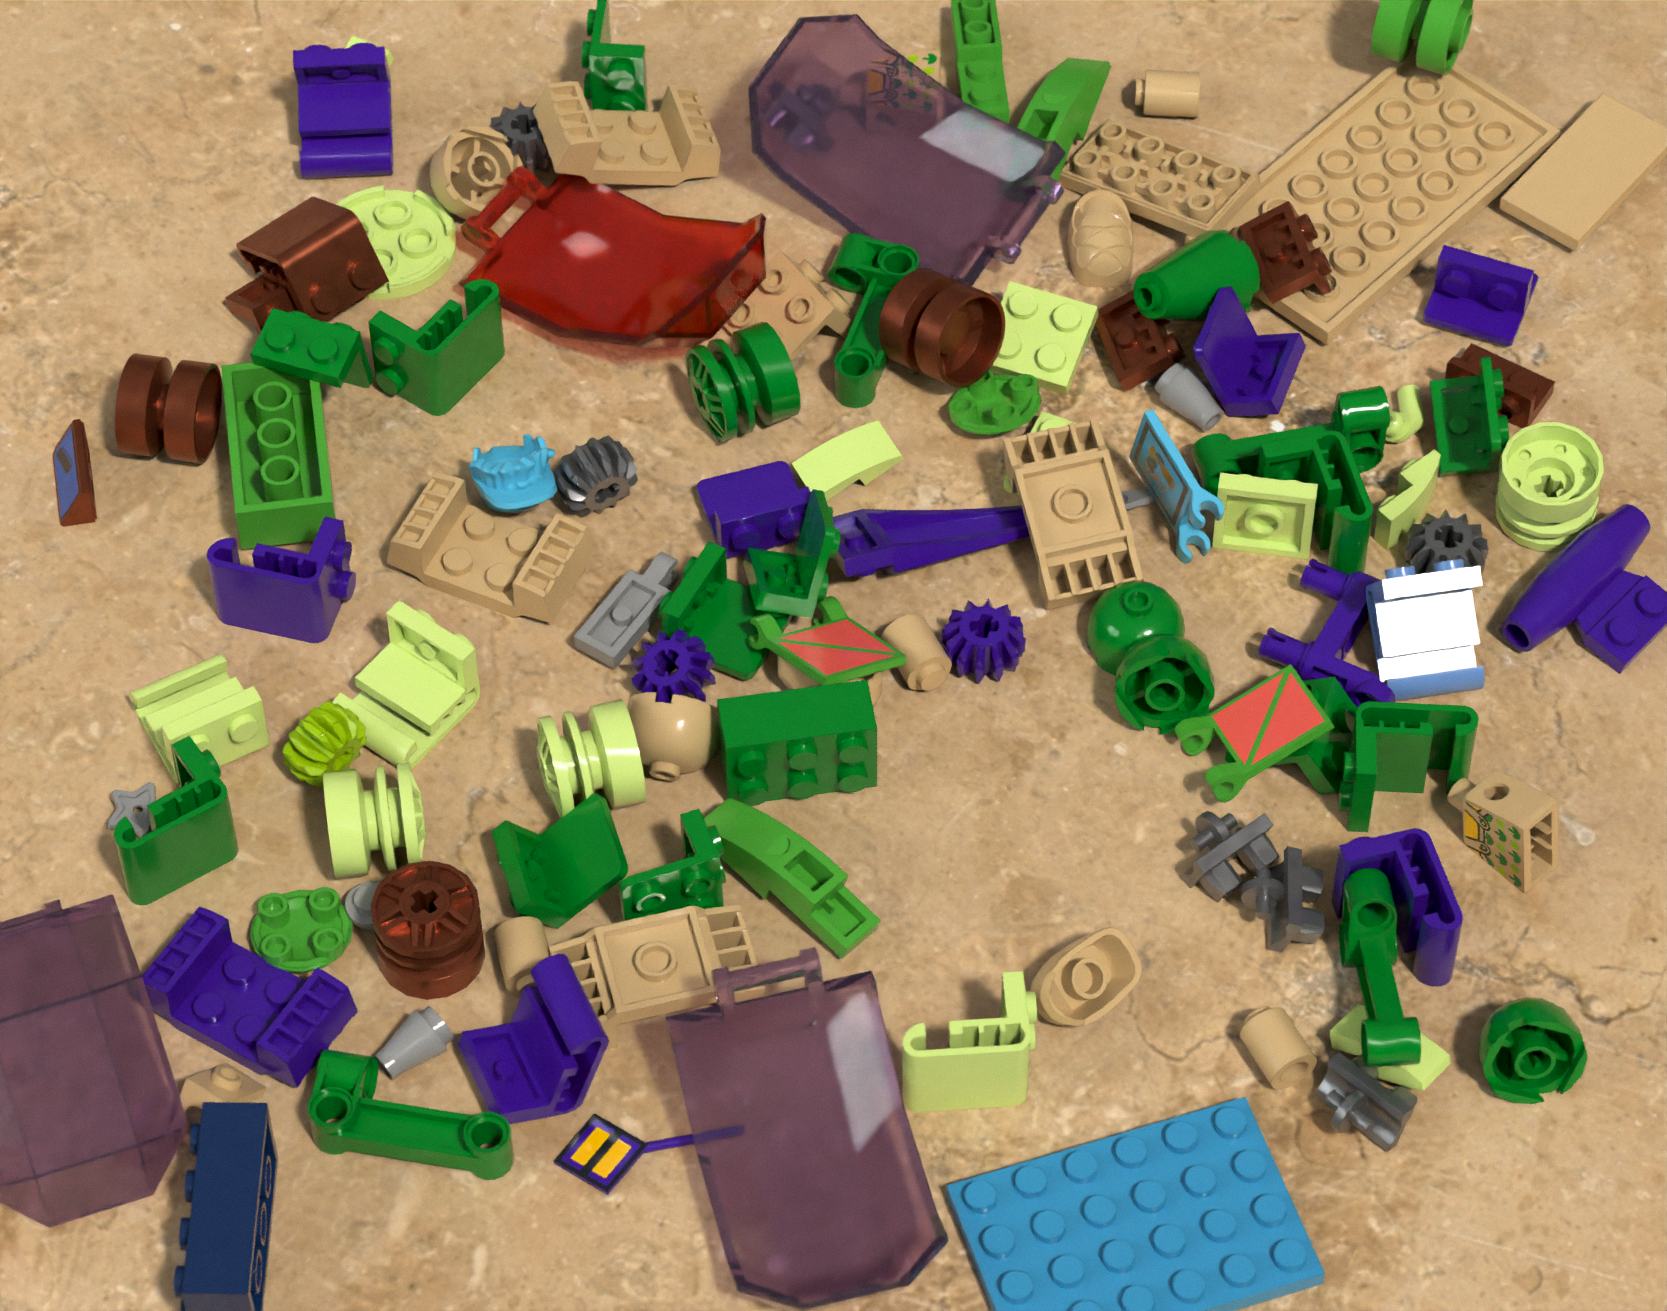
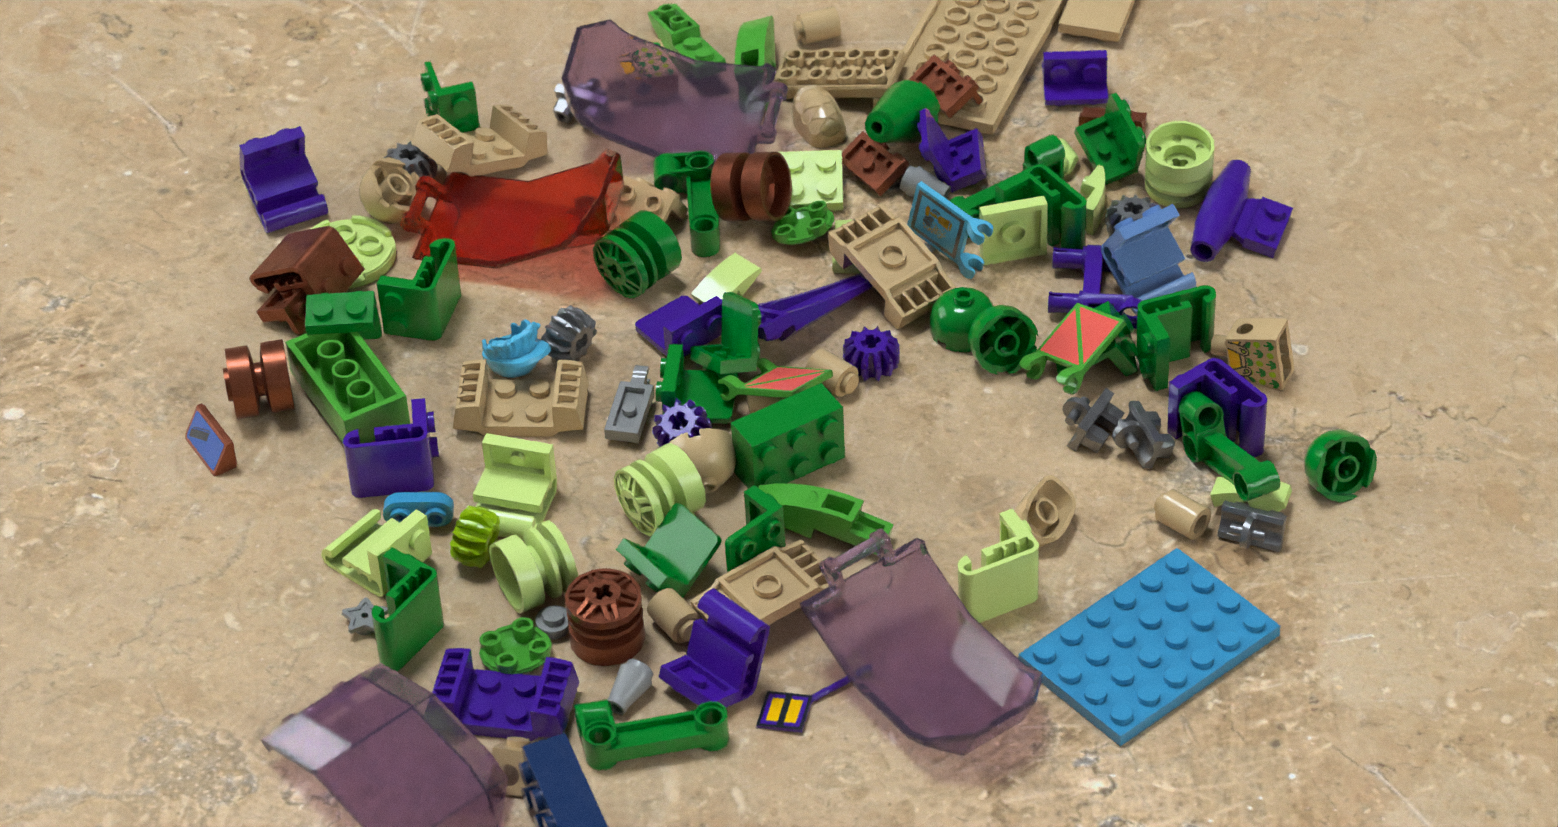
camera: 20 degrees left, 10 degrees down
(280, 674) = (435, 505): none -> dark azure plate

